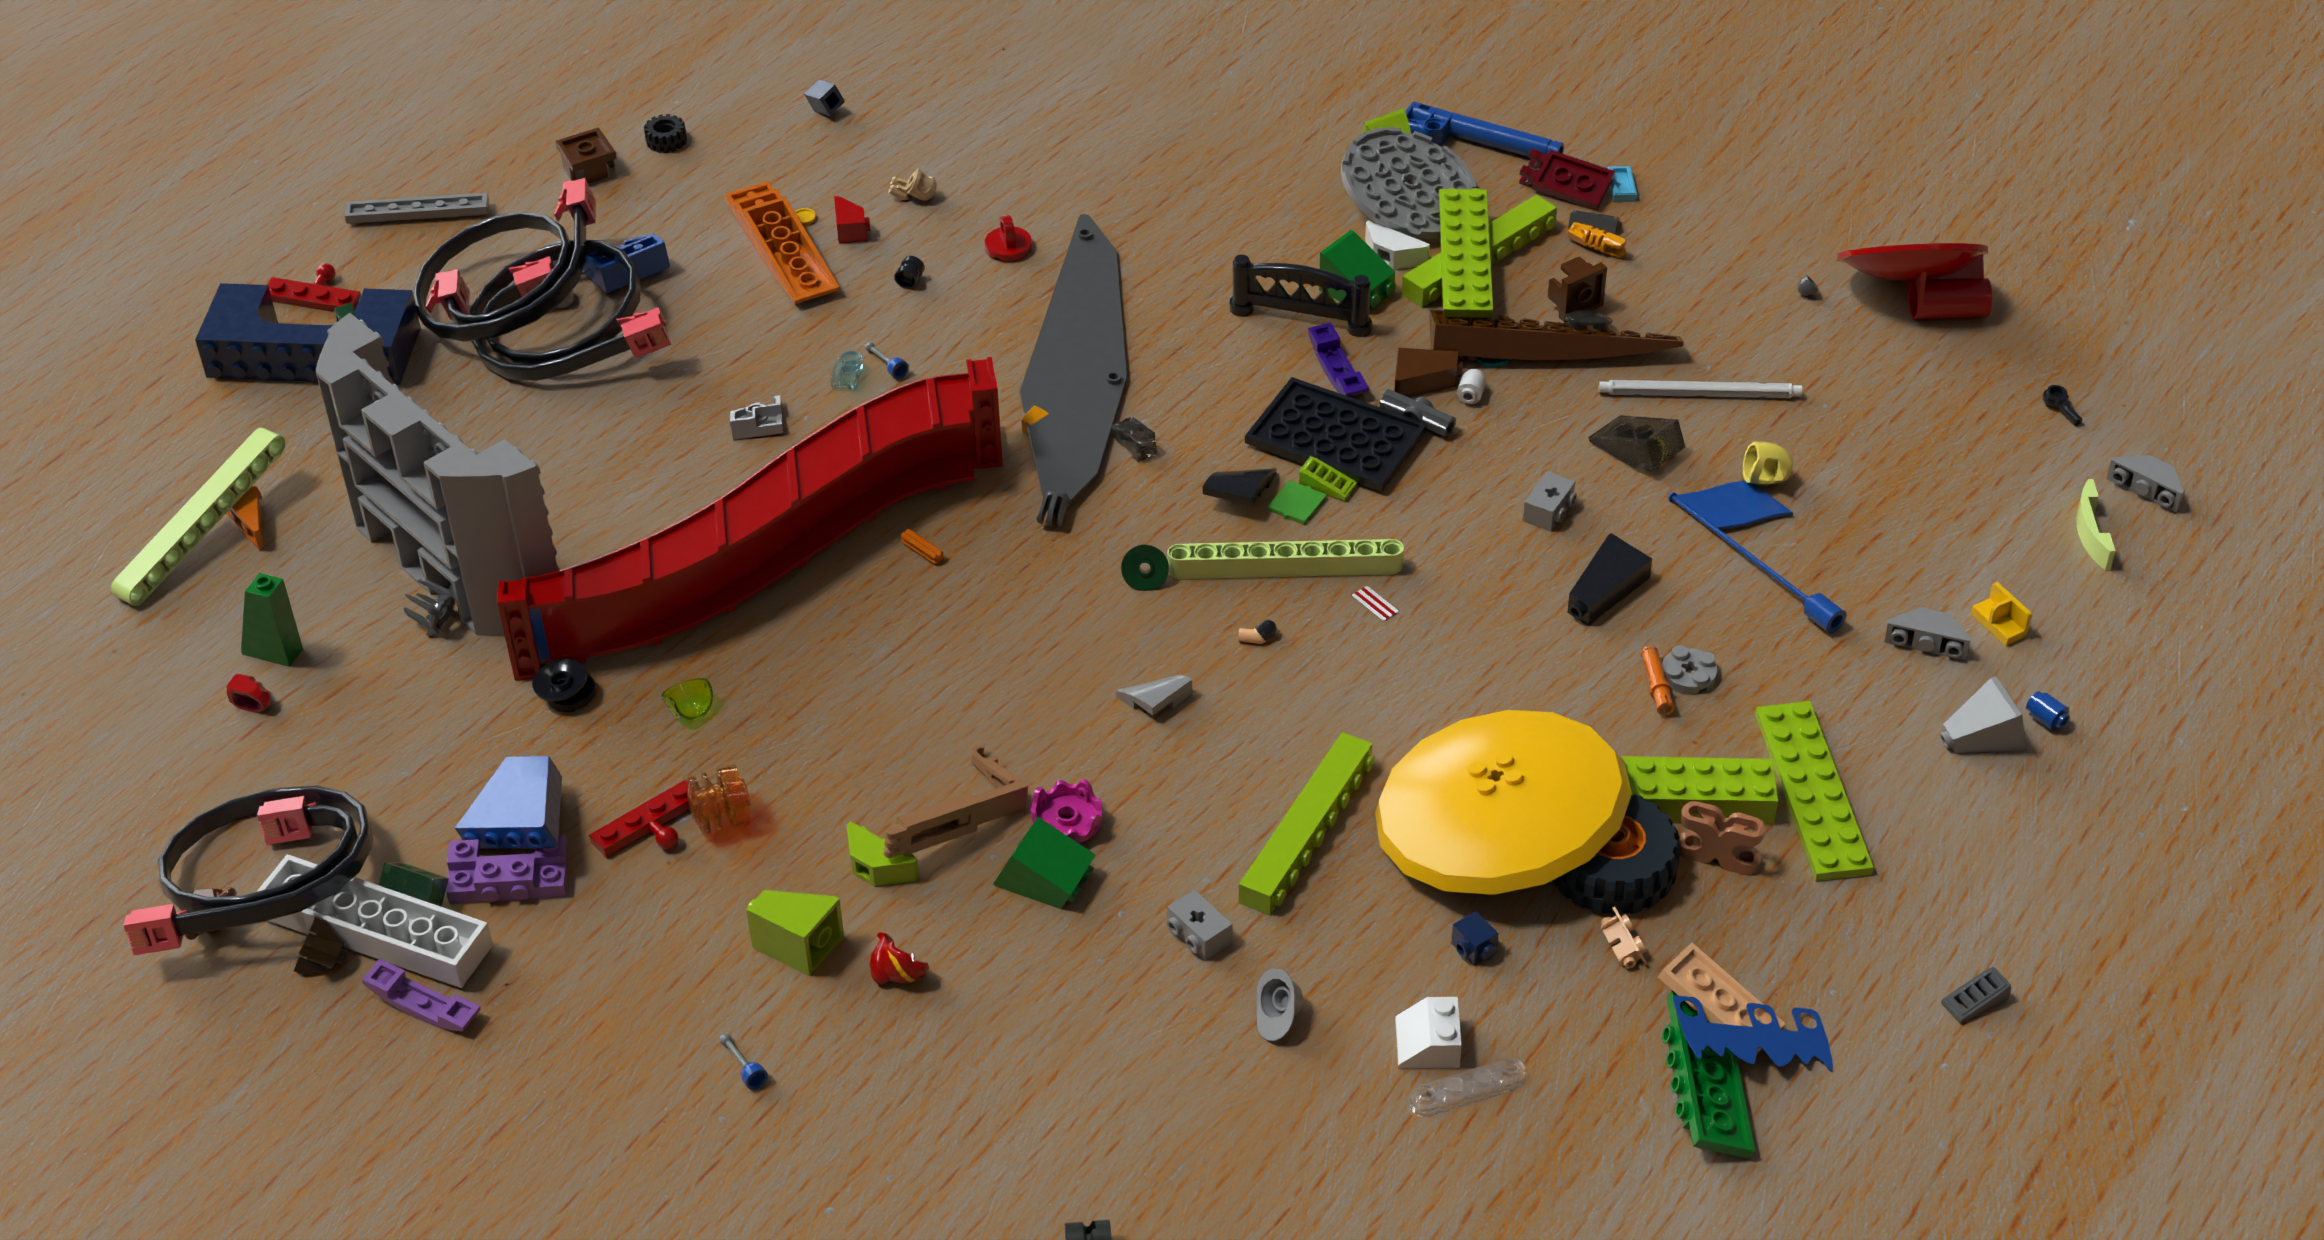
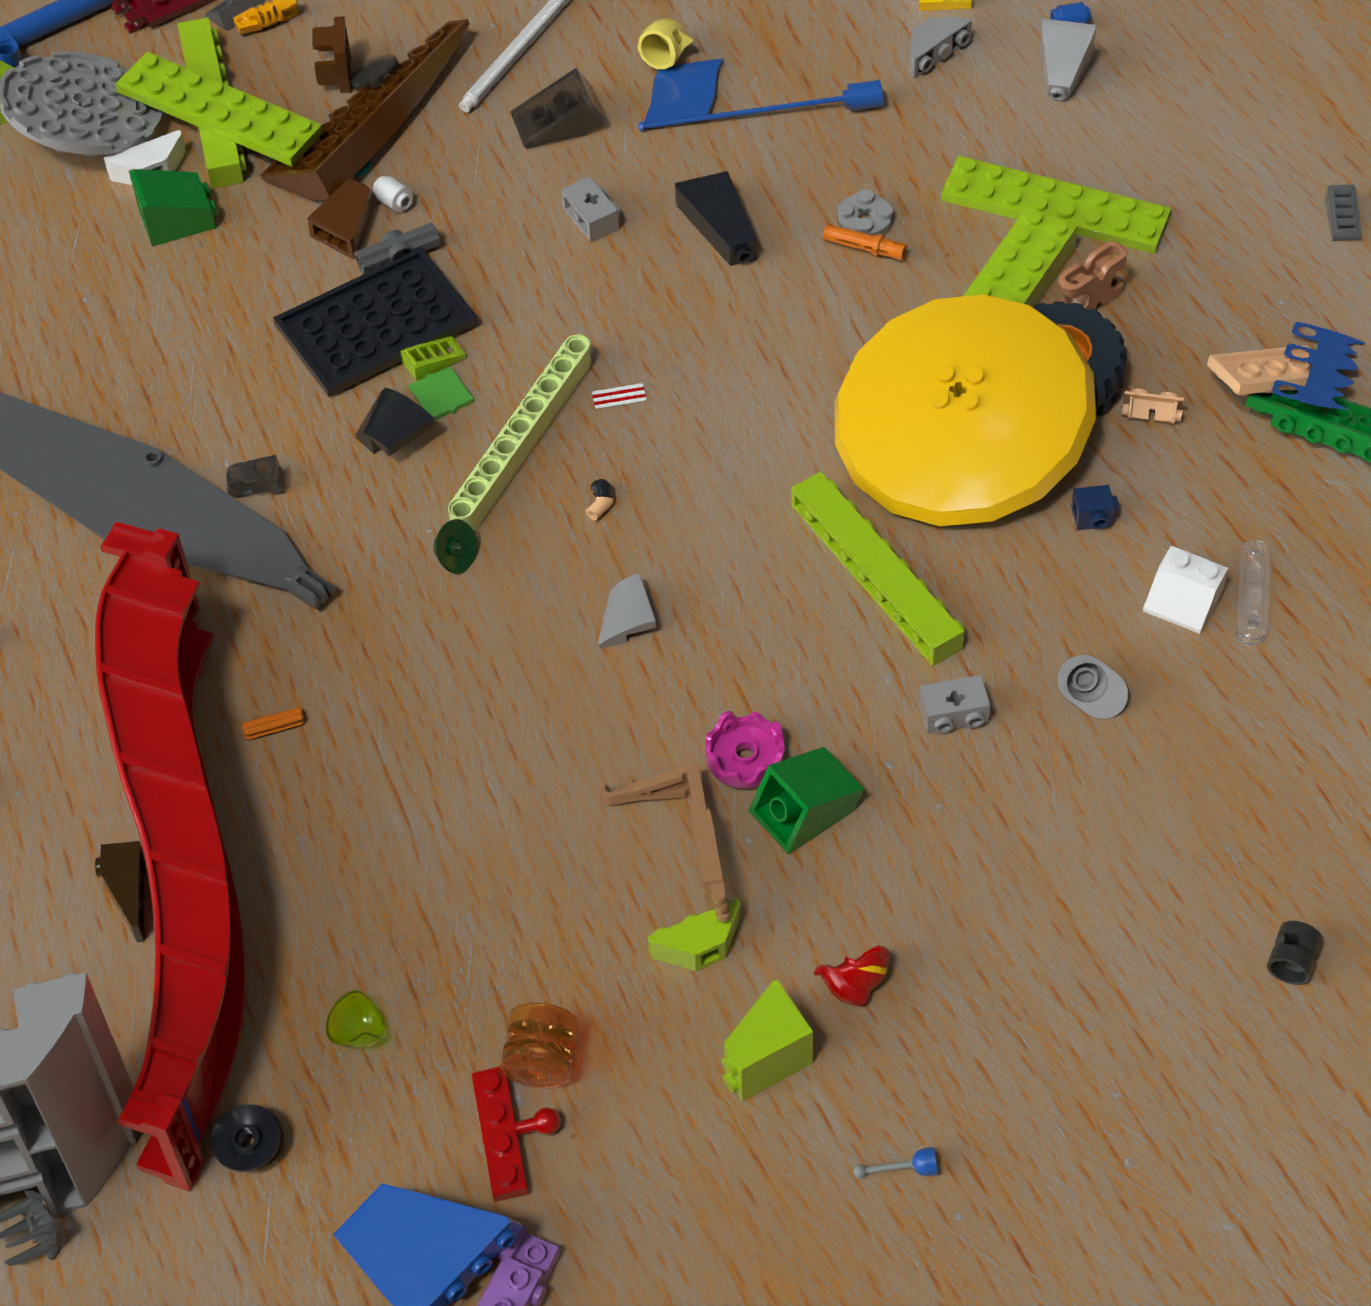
camera: 60 degrees left, 10 degrees up
(1249, 292) = (224, 230): black piece -> none
(1334, 361) = (277, 279): dark purple slope -> none

